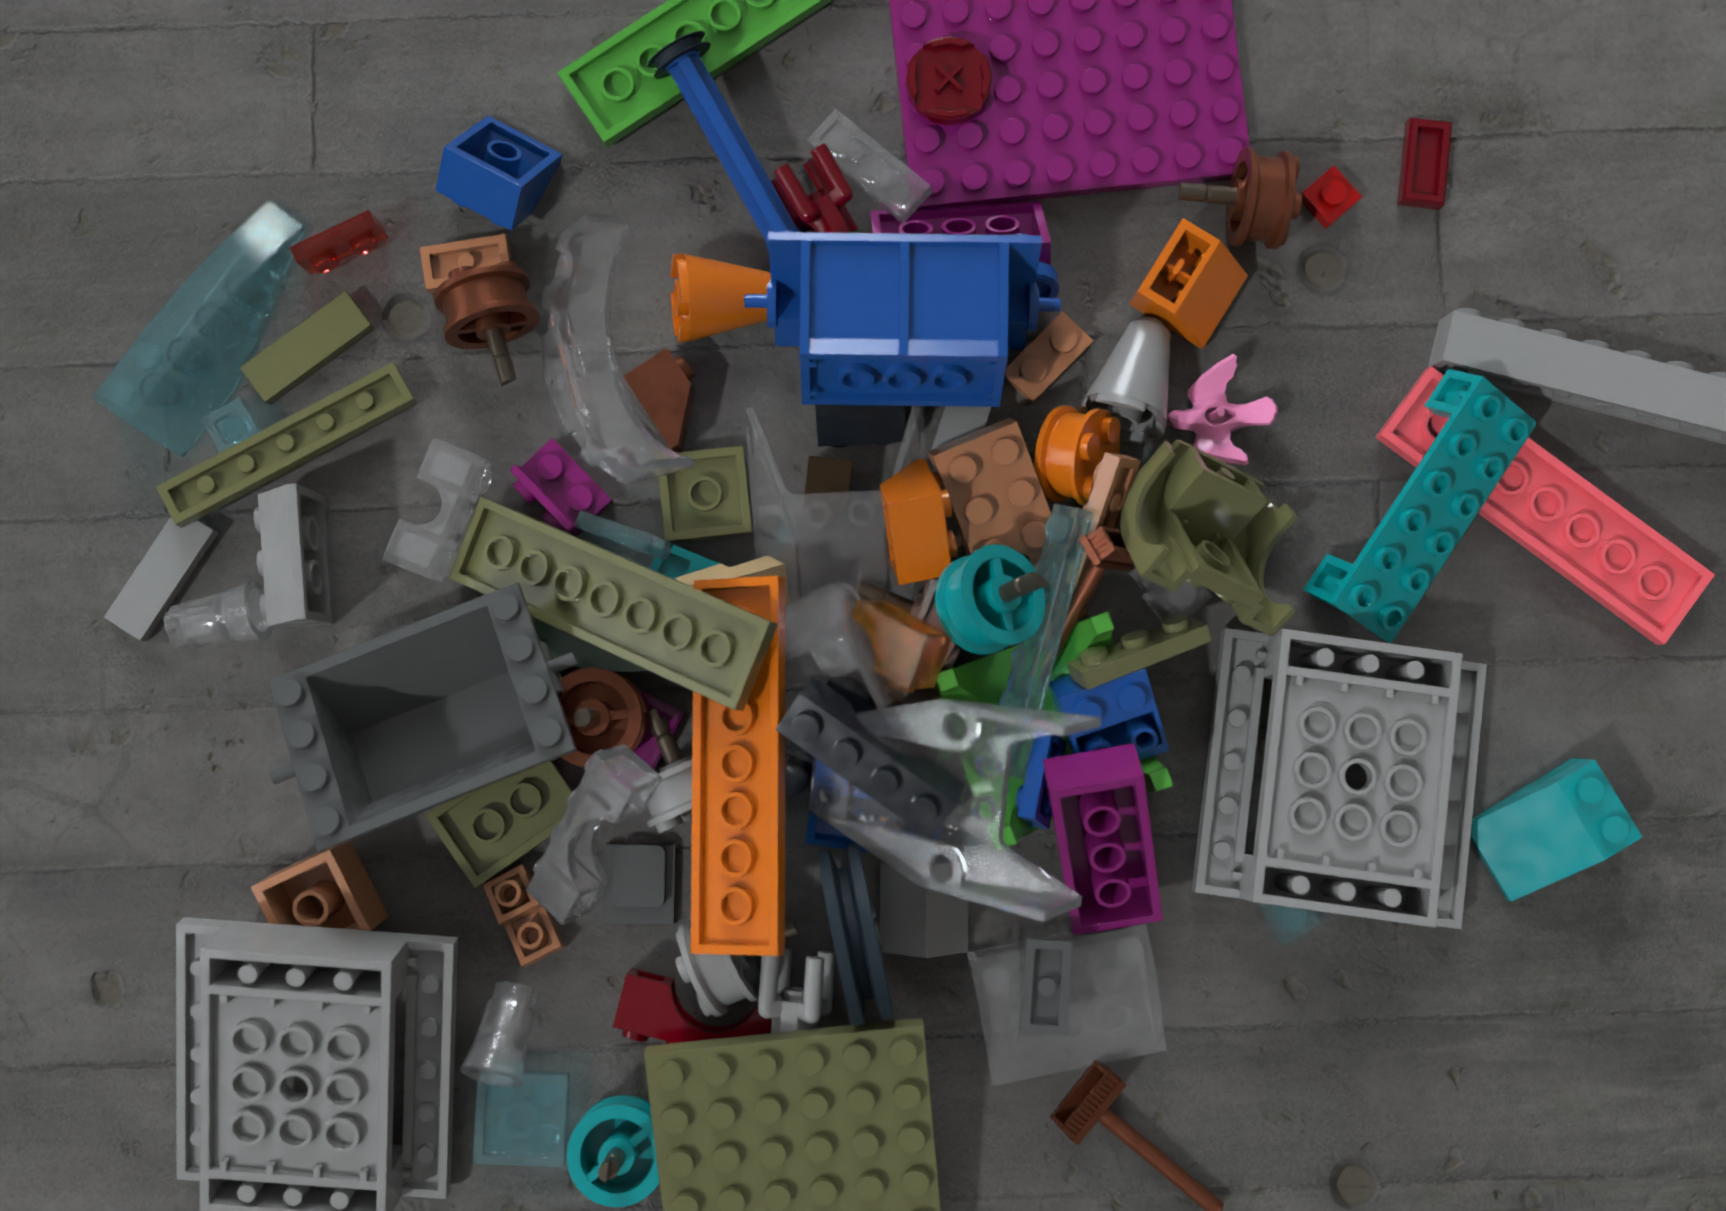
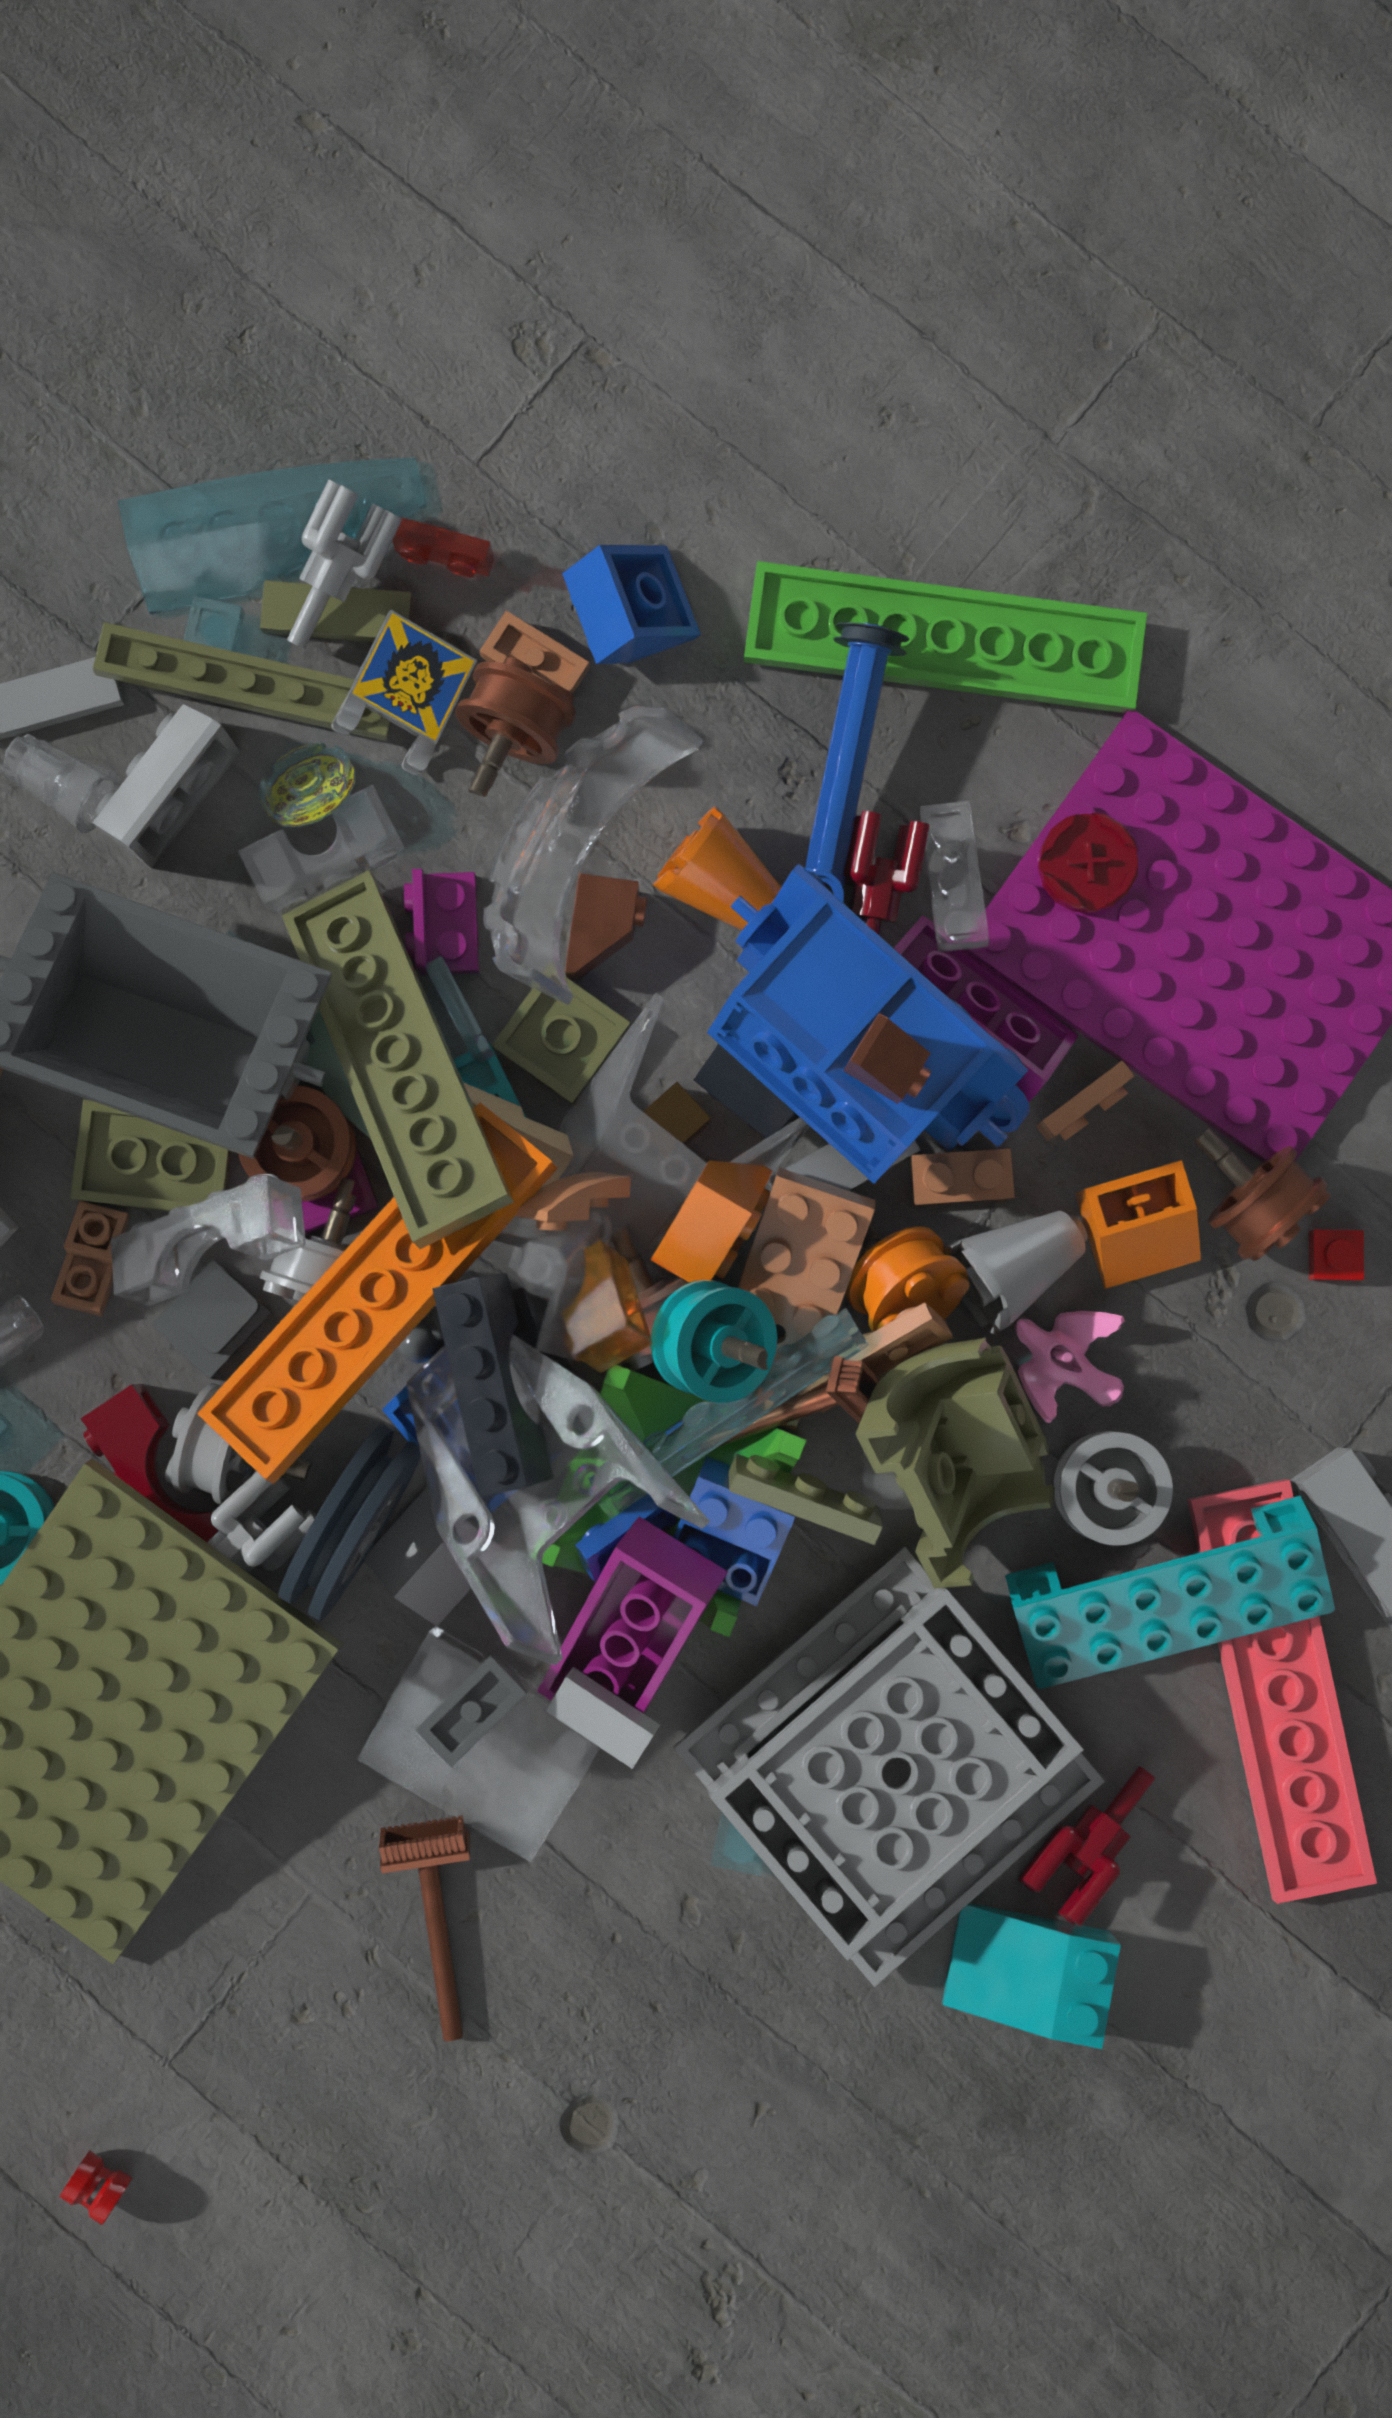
camera: 40 degrees right, 0 degrees up
(273, 306) = (338, 557): none -> light grey plant
(389, 476) = (307, 785): none -> clear light blue tile
(396, 350) = (410, 682): none -> flag
(813, 589) = (571, 1198): none -> nougat slope
(946, 306) = (889, 1061): none -> copper slope
(1088, 222) = (1103, 1091): none -> nougat plate
(1134, 913) = (602, 1717): none -> light grey tile
(1324, 470) = (1112, 1487): none -> light grey wheel
(1517, 718) = (1088, 1850): none -> dark red plant

